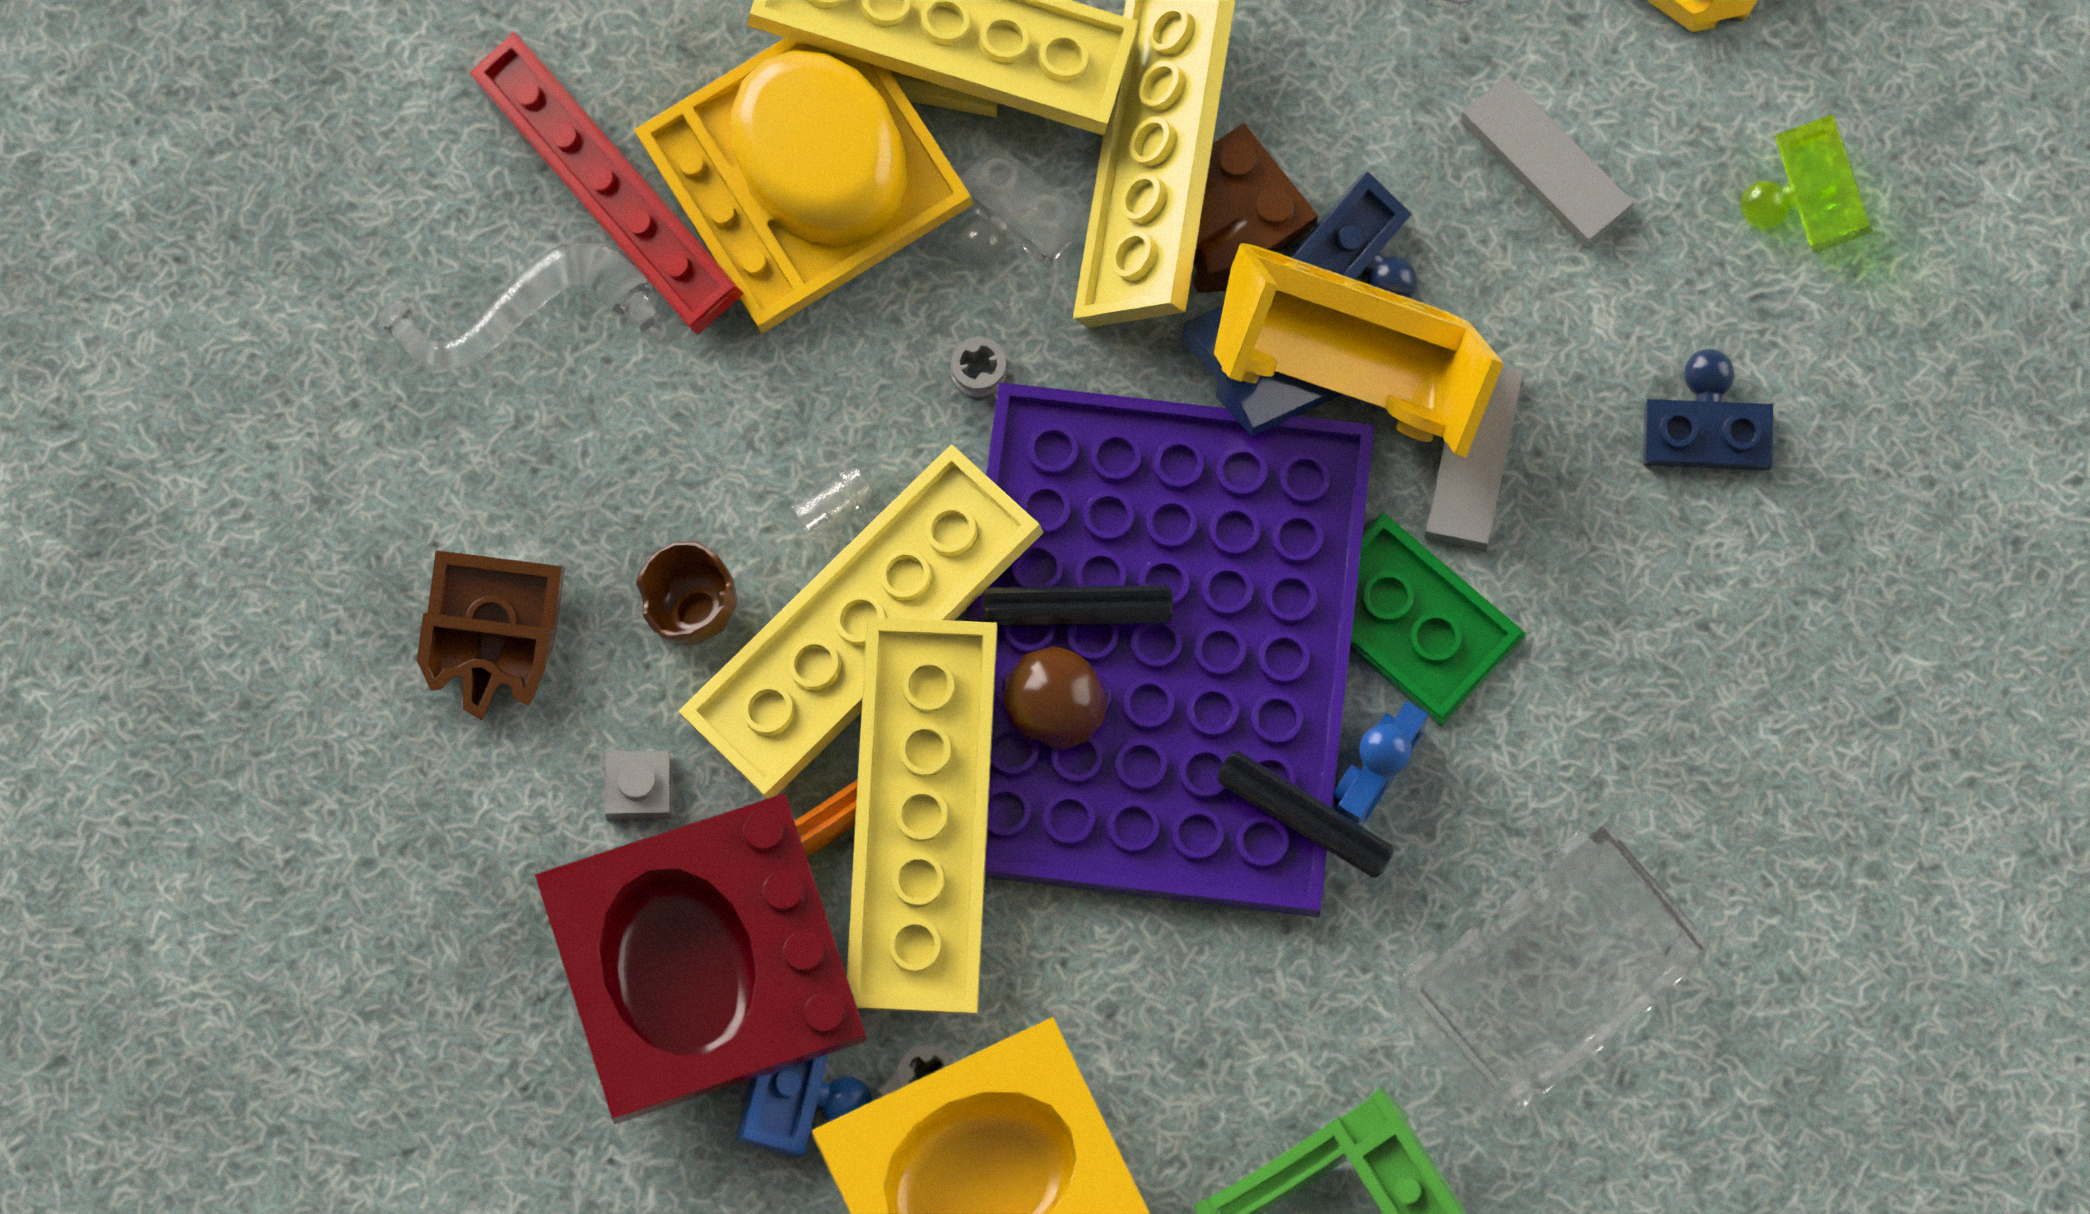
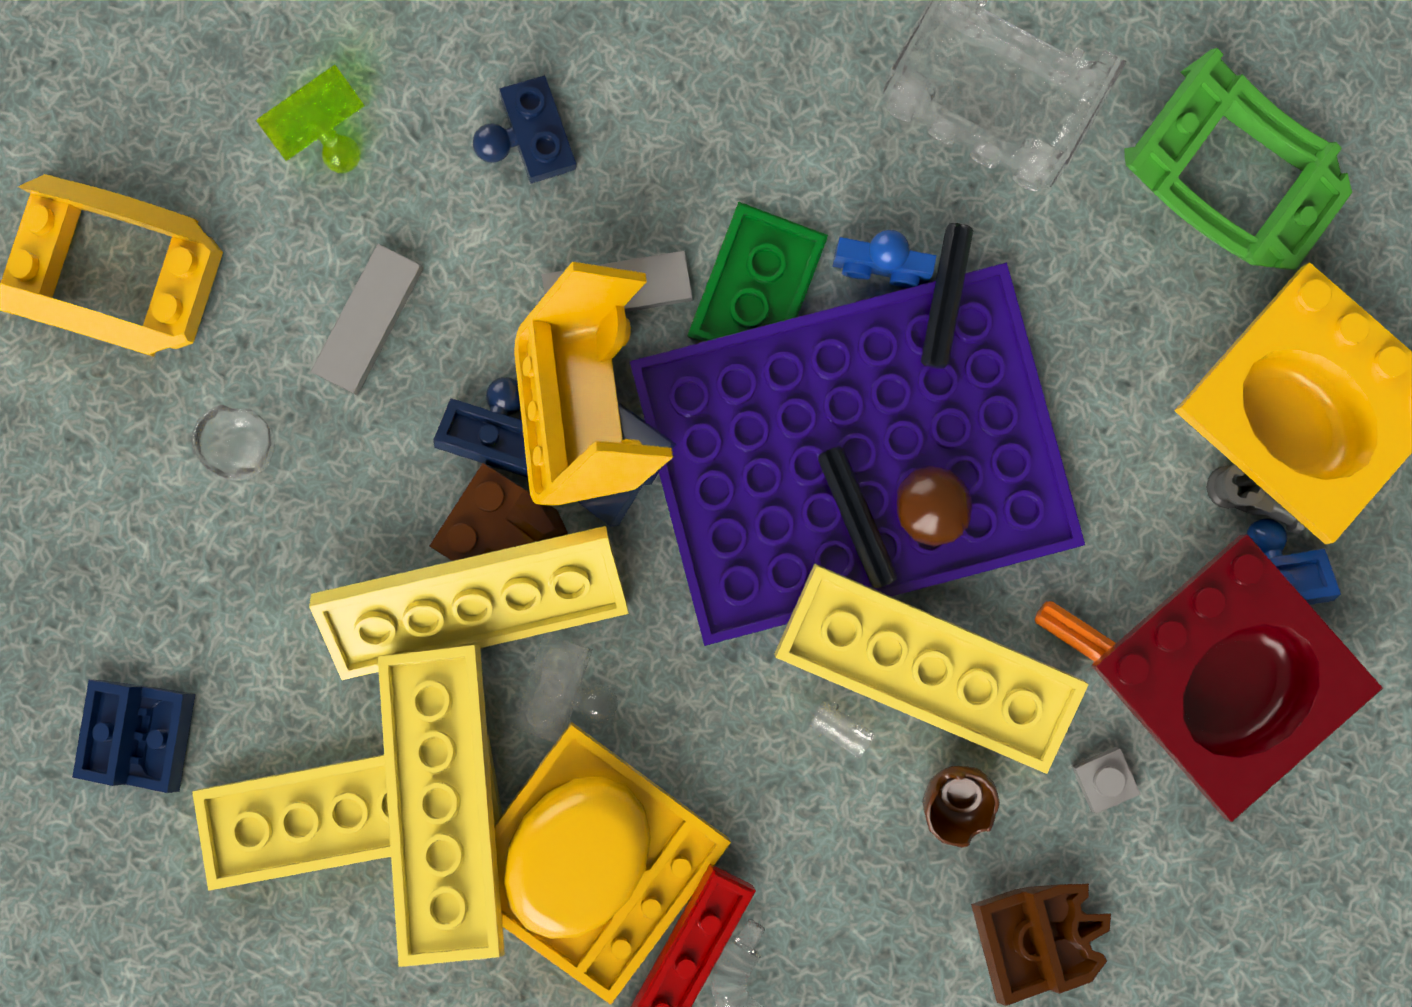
camera: 110 degrees left, 15 degrees up
(922, 815) = (1062, 564): light yellow plate -> none
(972, 350) = (681, 676): light grey bush -> none

